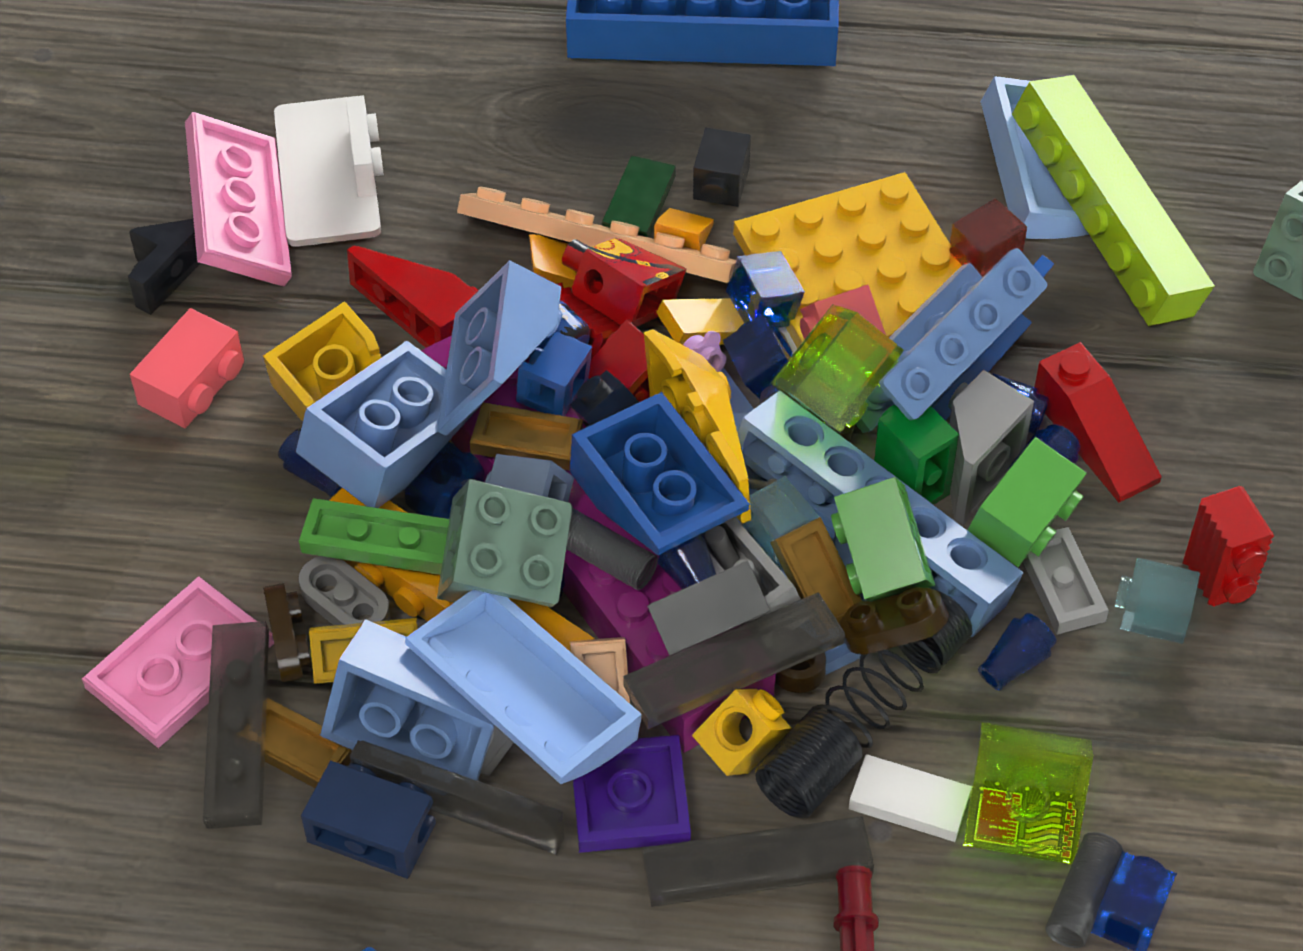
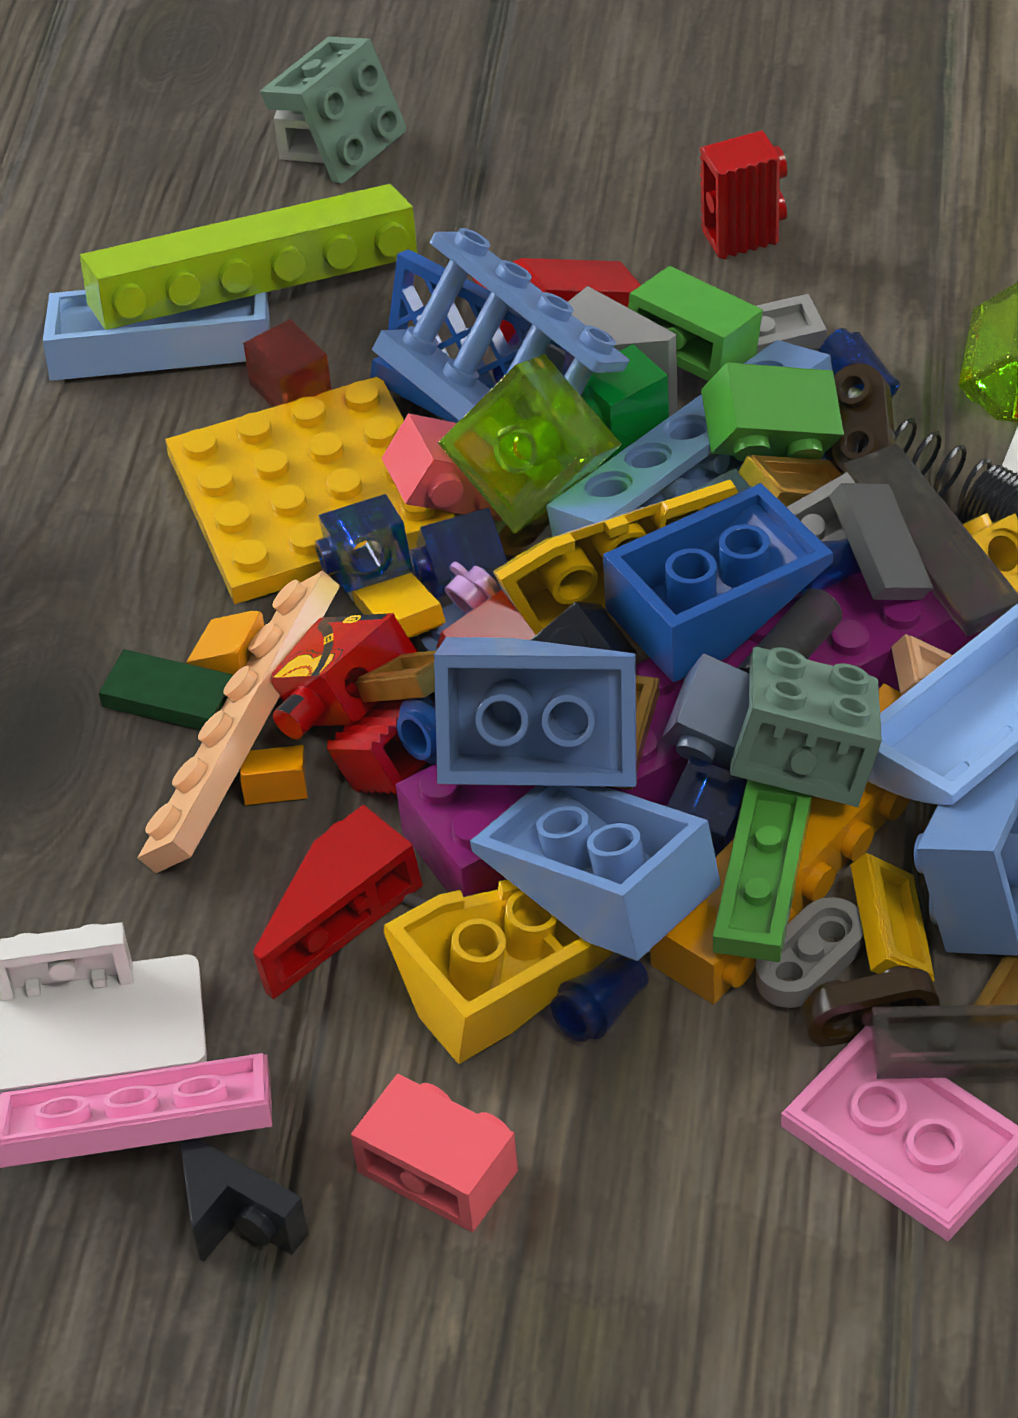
camera: 85 degrees left, 5 degrees down
(586, 303) = (400, 678): none -> pearl gold tile
(721, 167) = (138, 600): black brick -> none
(1157, 600) = (790, 258): clear light blue brick -> none

